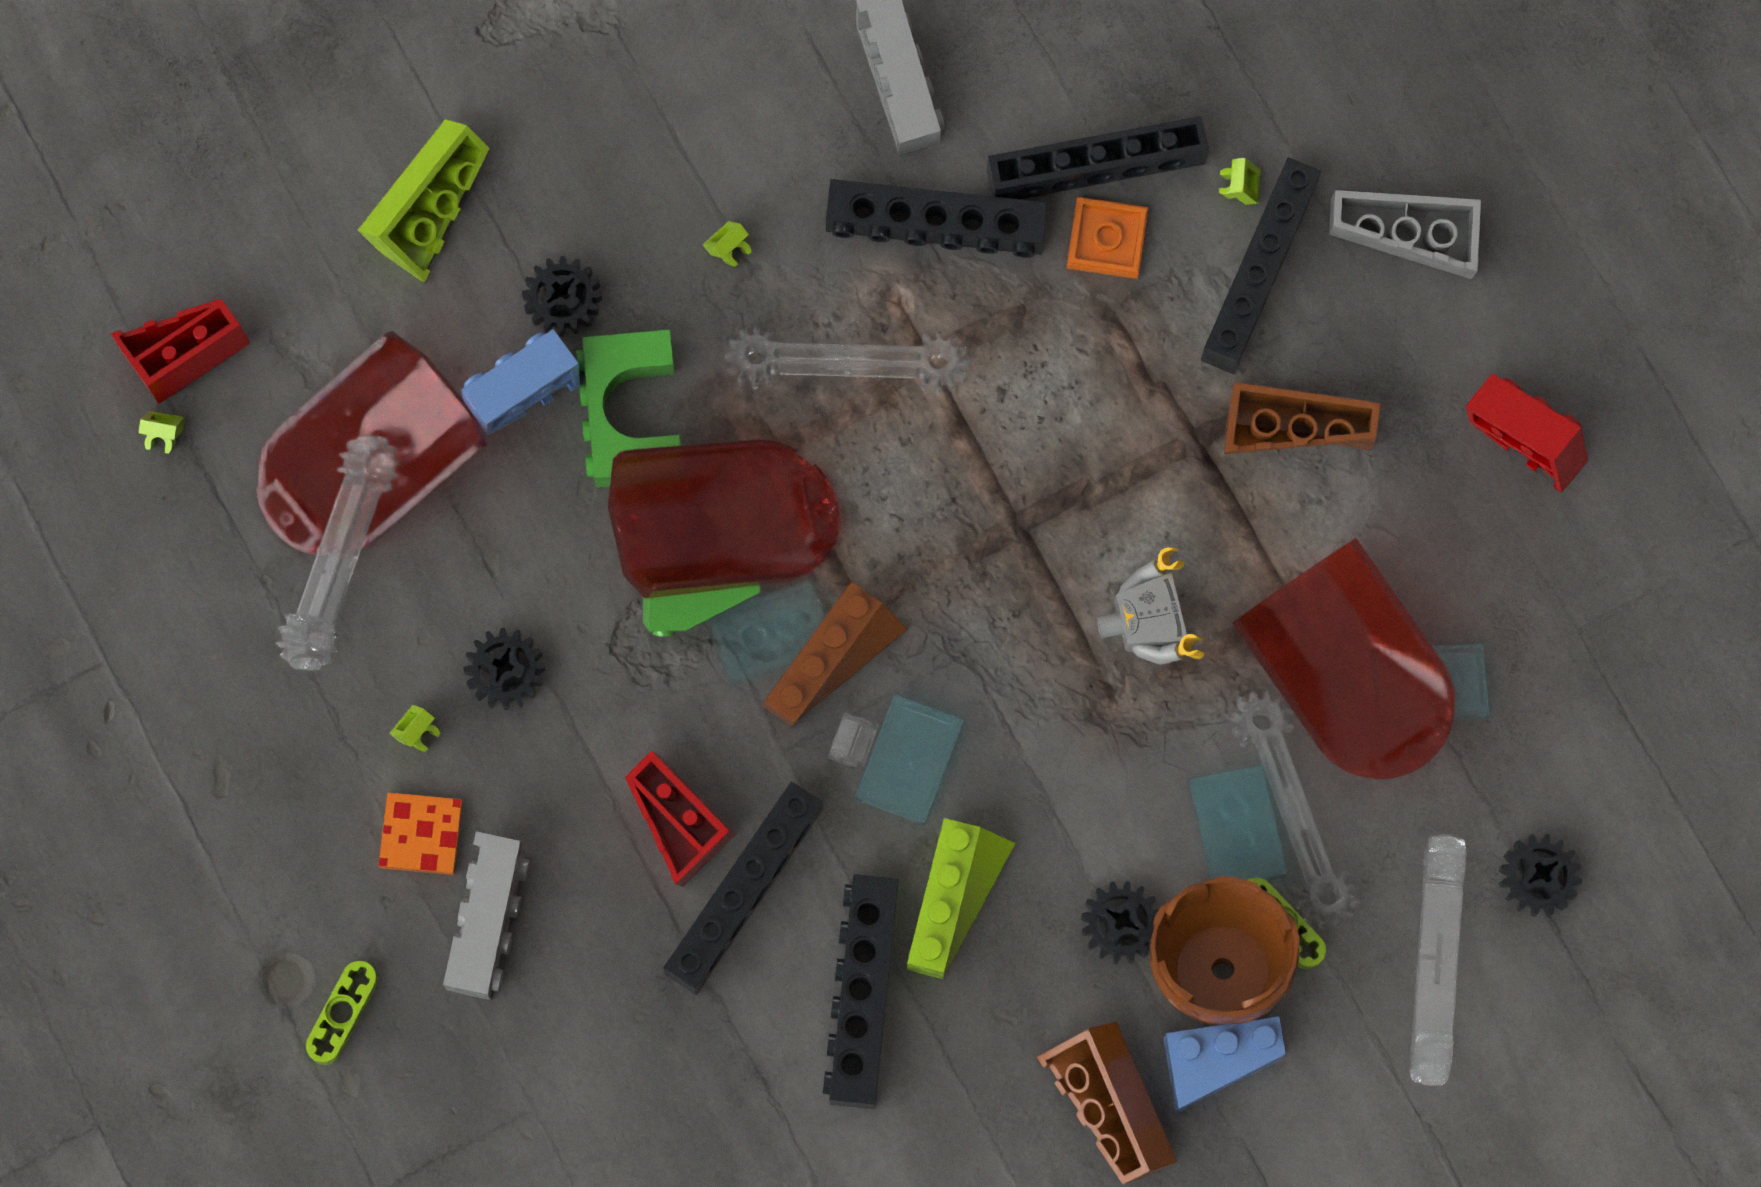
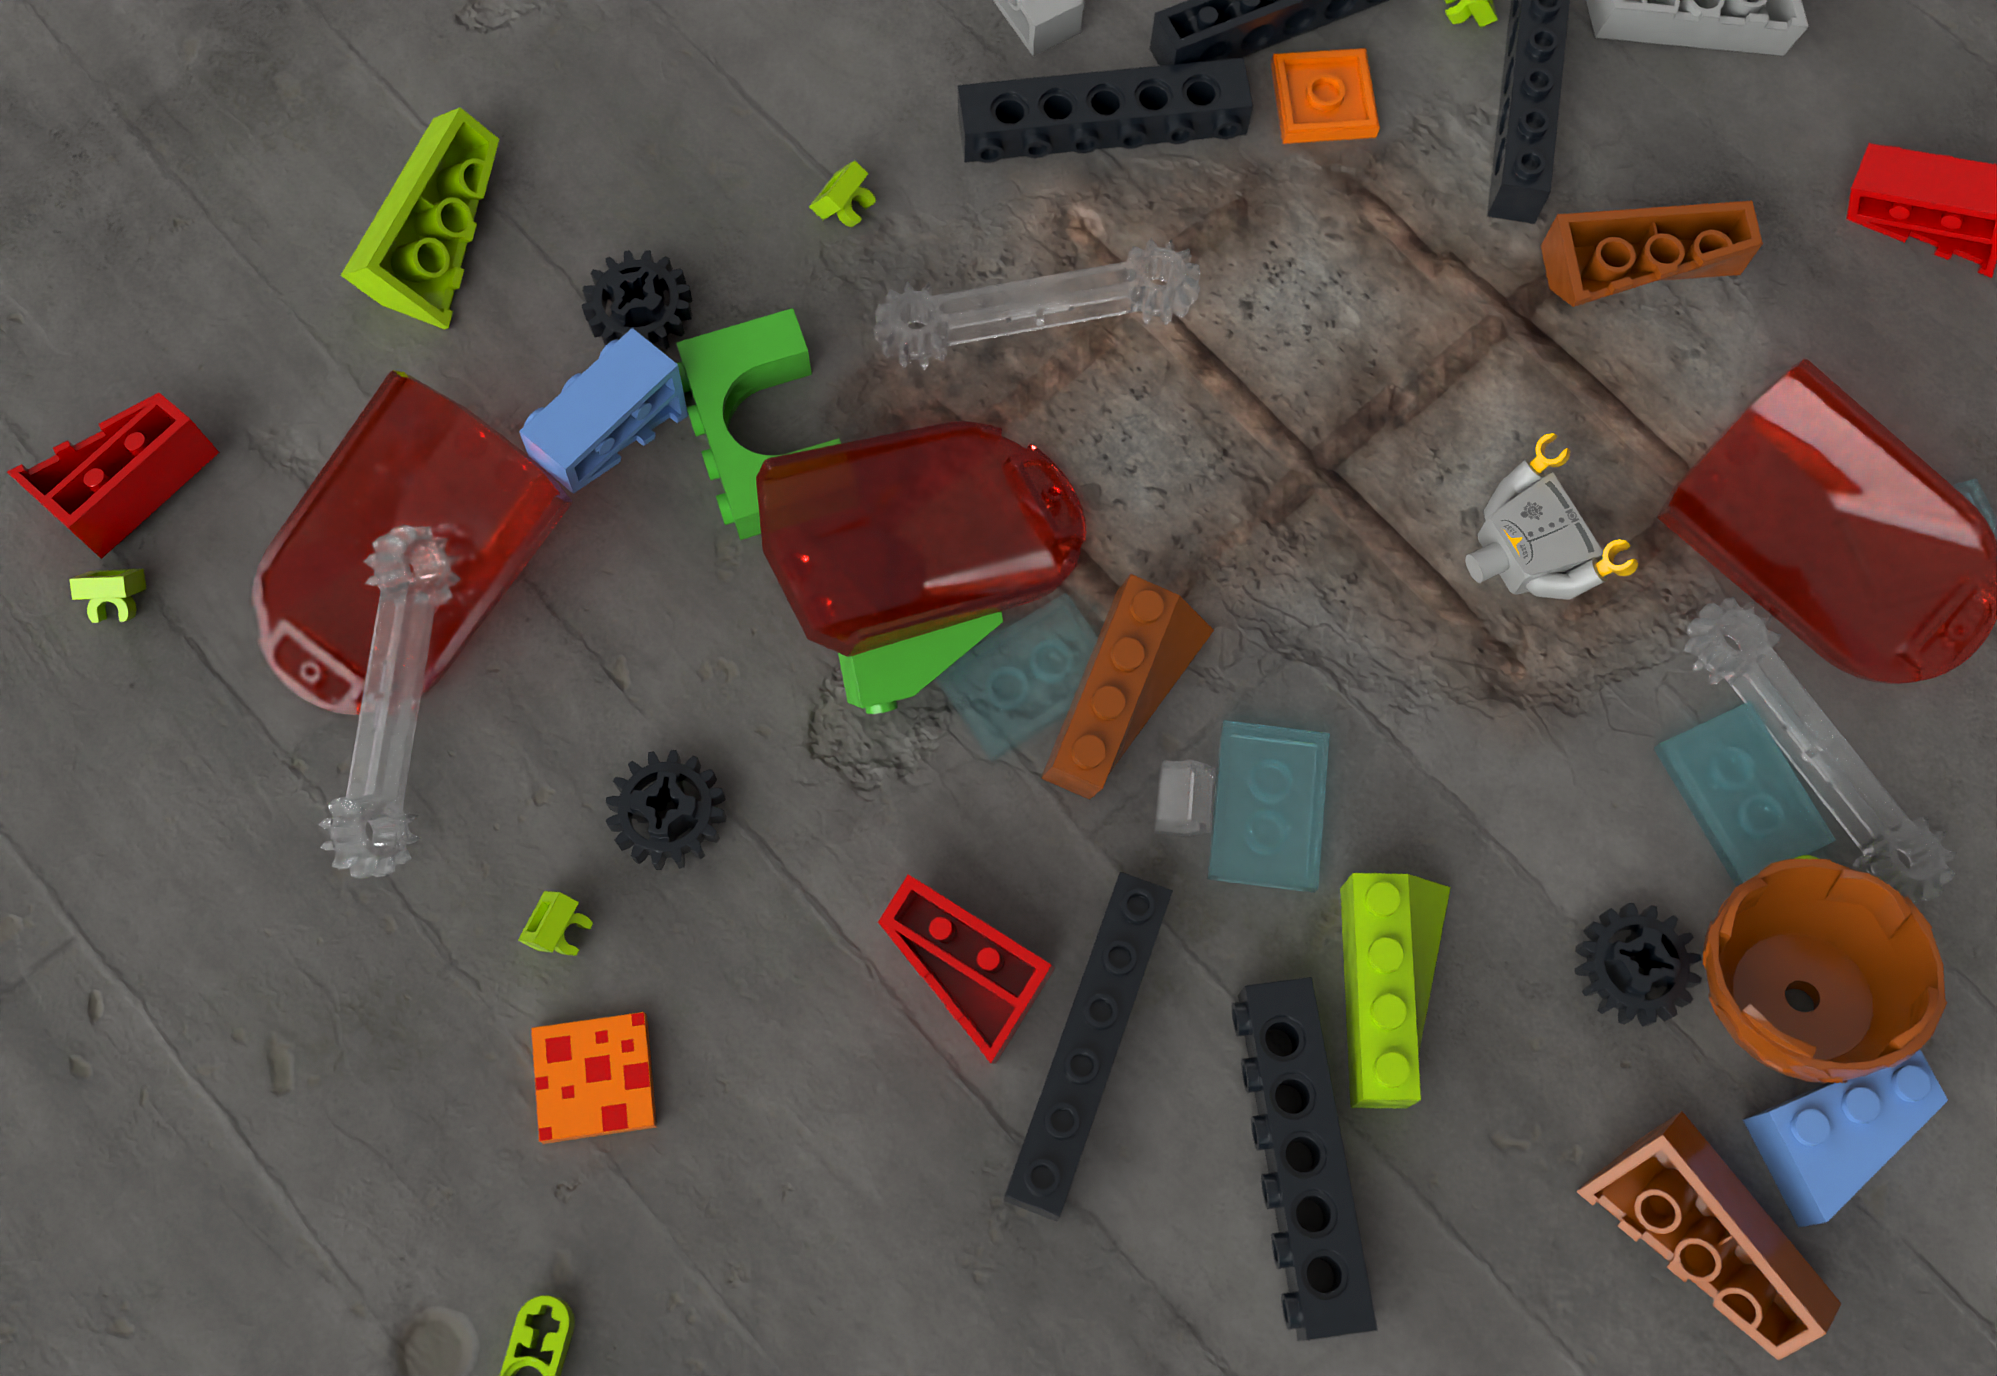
camera: 15 degrees left, 5 degrees down
(486, 916) = (718, 1181): light grey wedge -> none

